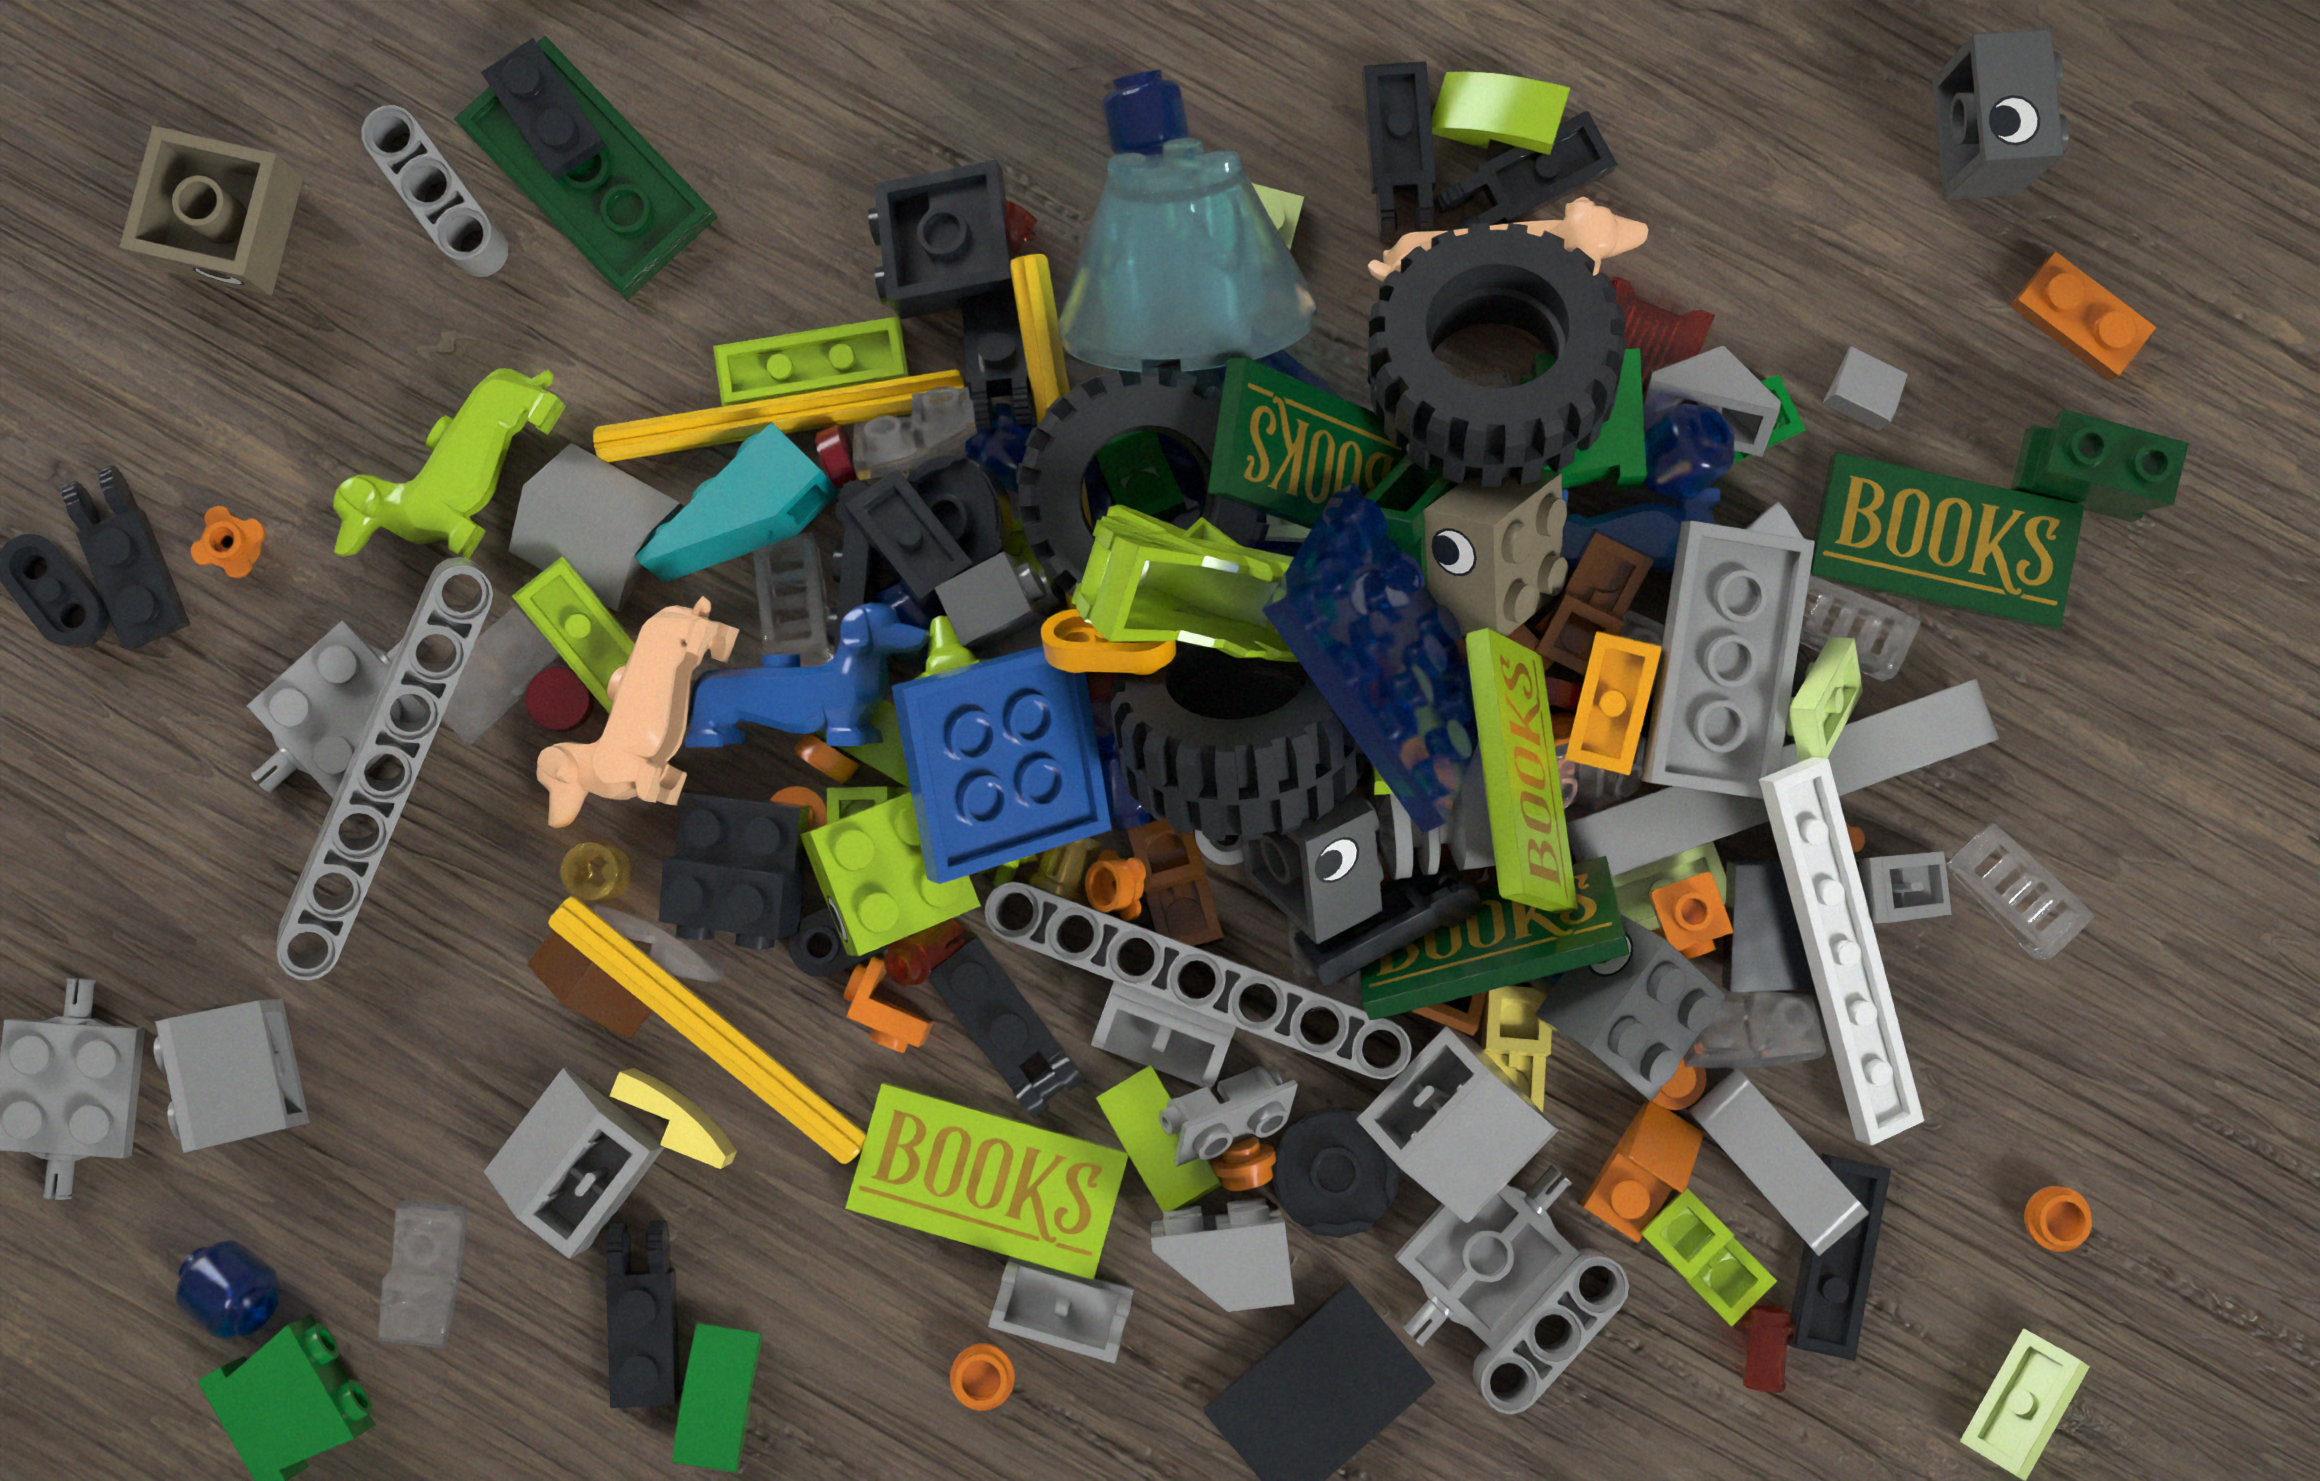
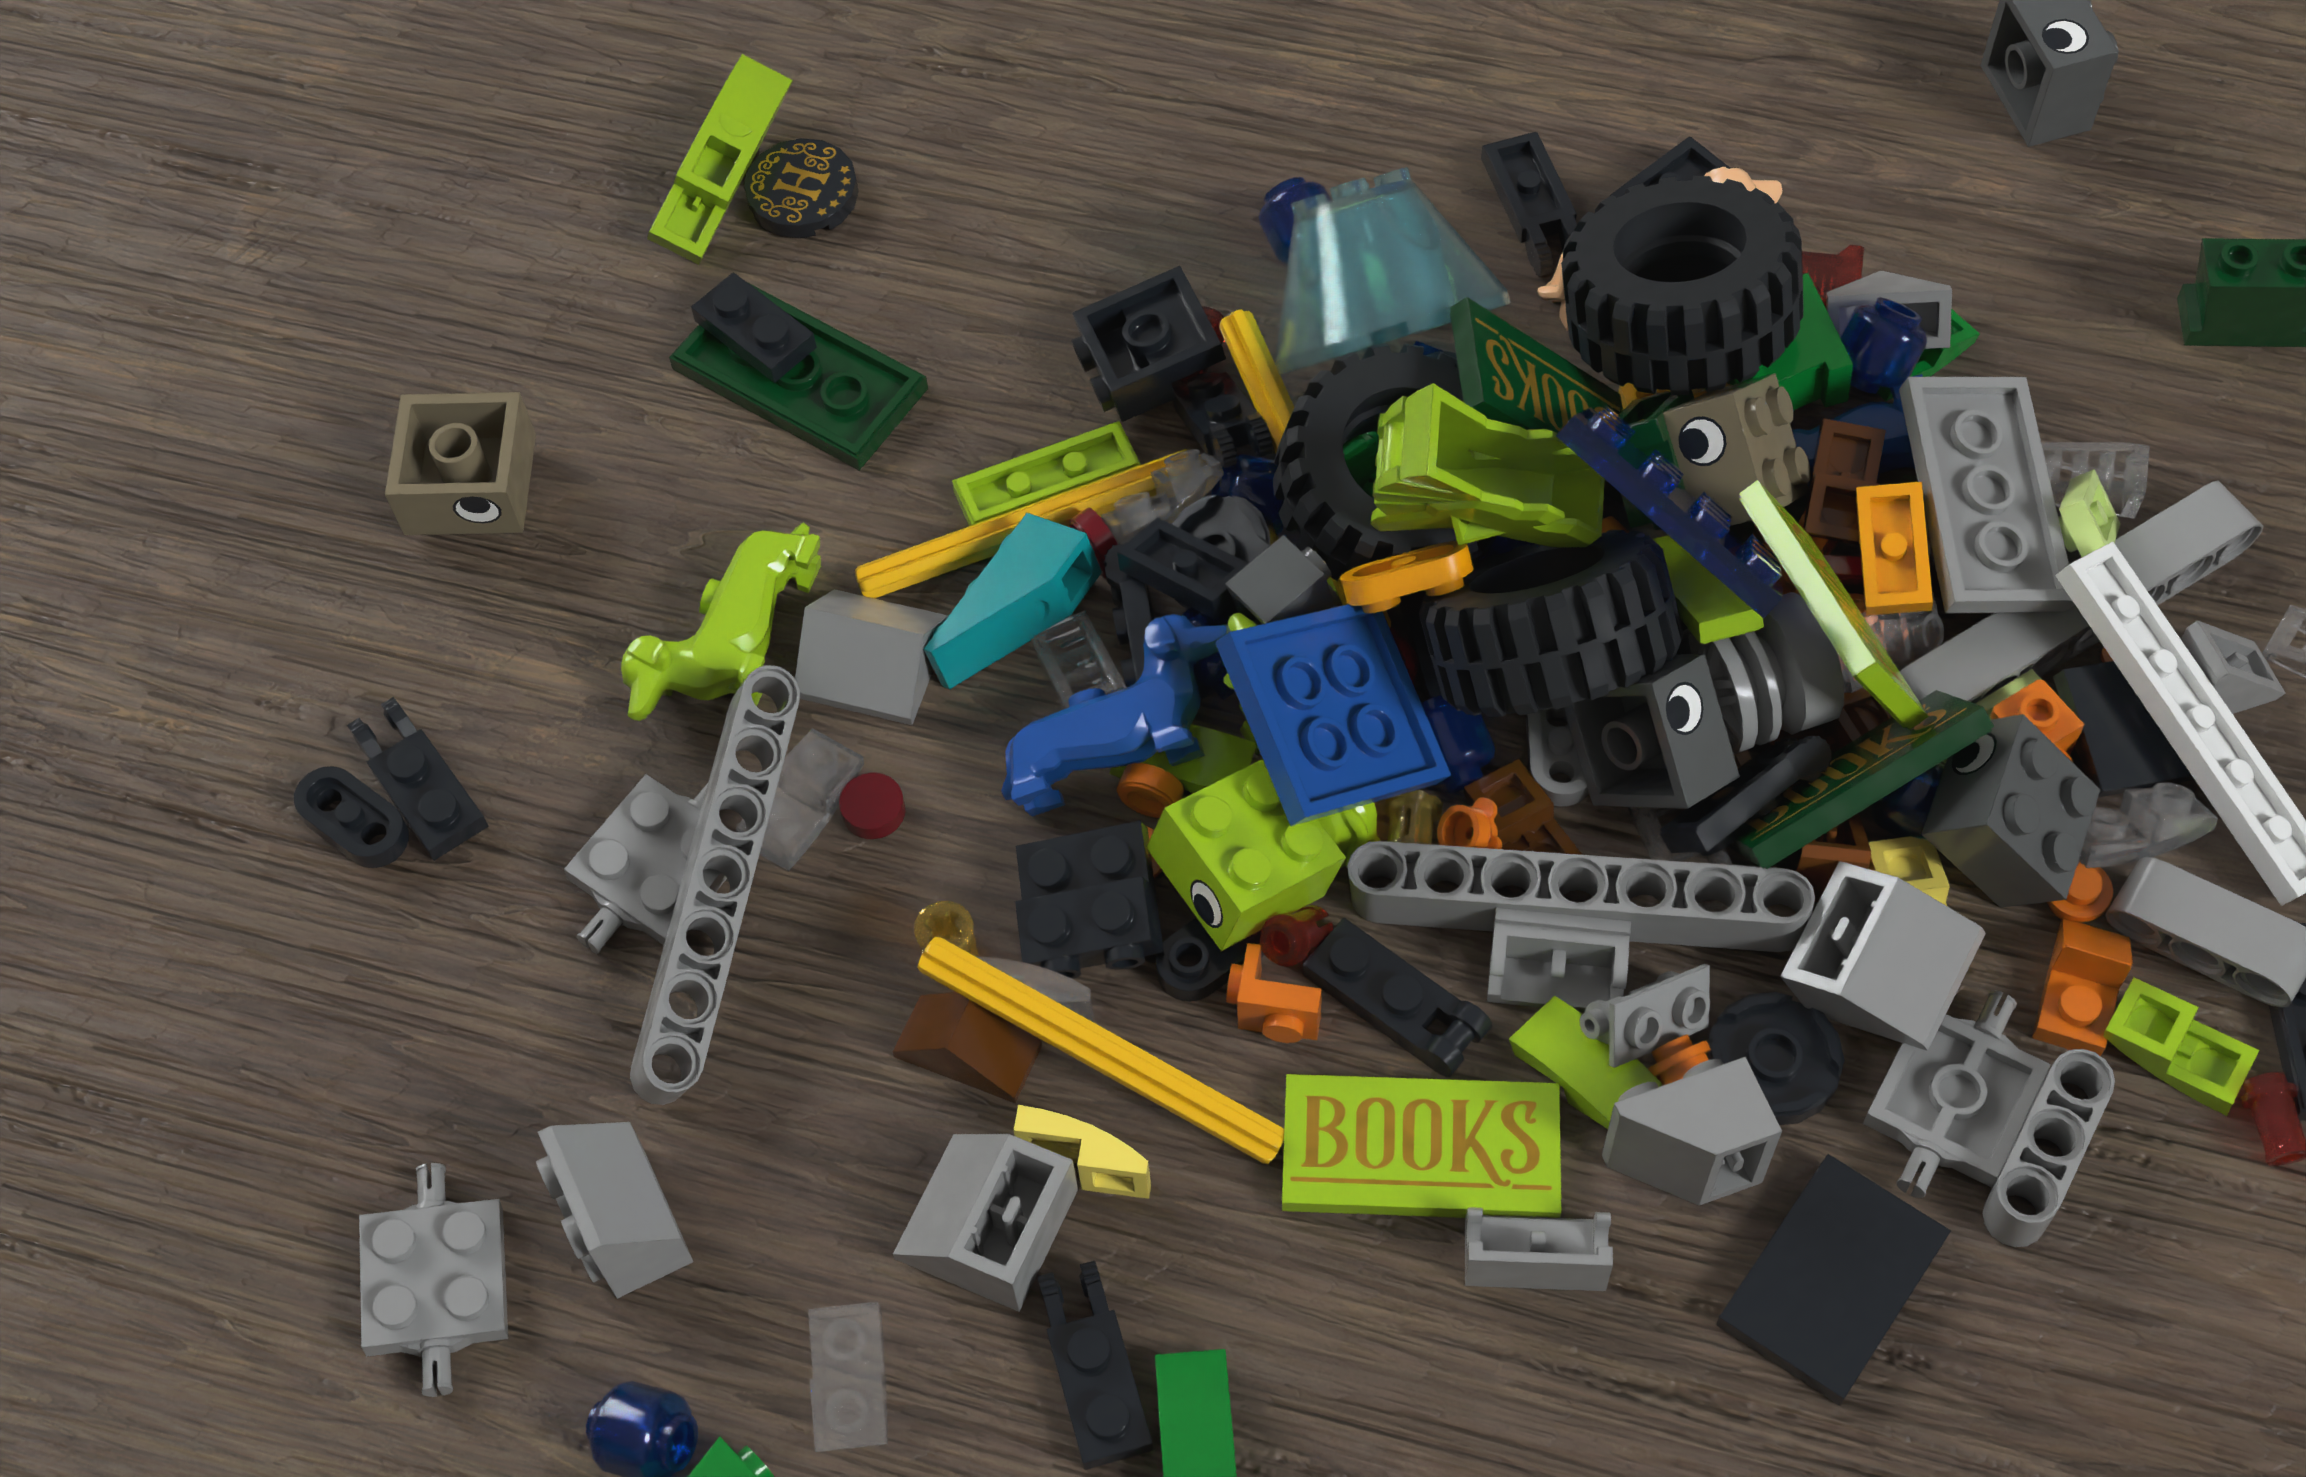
camera: 10 degrees left, 25 degrees down
(246, 544) = (523, 754): orange plate -> none
(415, 171) = (665, 412): light grey beam -> none
(577, 625) = (904, 749): lime tile -> none
(645, 718) = (966, 788): light nougat animal -> none
(982, 1376) = (1473, 1341): orange plate -> none
(1499, 108) = (1619, 147): lime slope -> none
(1866, 389) = (2020, 295): light grey slope -> none
(1946, 541) = (2149, 390): dark green tile -> none
(2083, 316) = (2188, 199): orange plate -> none

